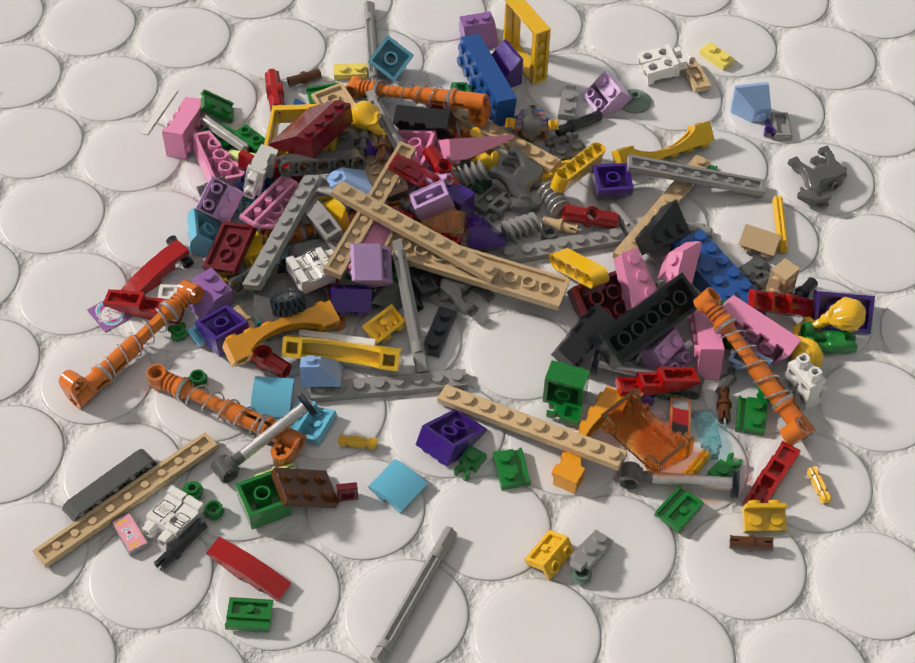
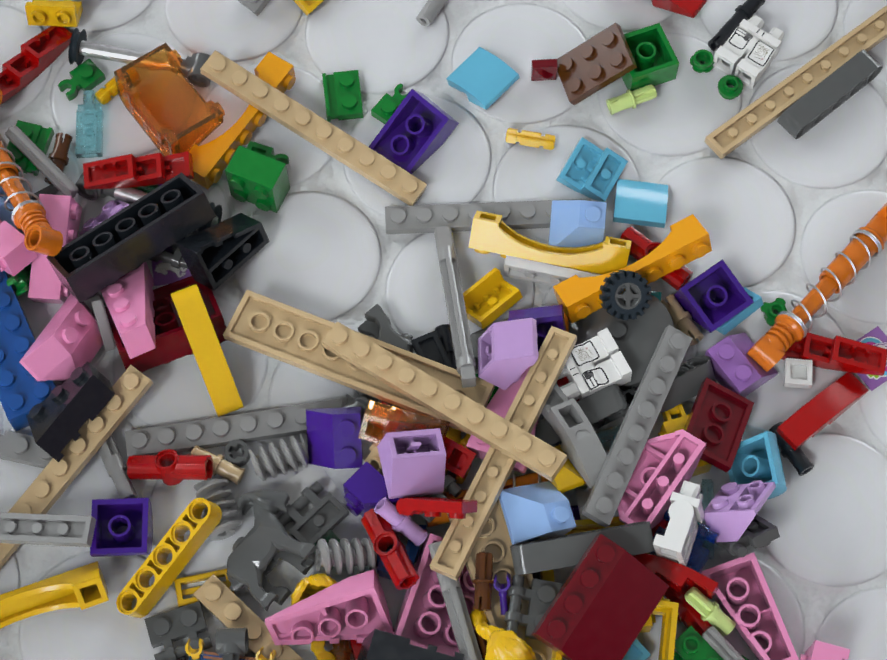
camera: 175 degrees left, 15 degrees up
(130, 534) = (798, 41): tile -> none
(198, 374) = (740, 231): green plate -> none
(228, 467) = (597, 144): piece -> none
(229, 410) = (694, 180): orange piece -> none
(439, 331) = (415, 295): black plate -> none
(679, 415) = (120, 140): slope -> none
(679, 509) = (151, 29): green plate -> none
(734, 391) = (41, 161): none -> light grey axle

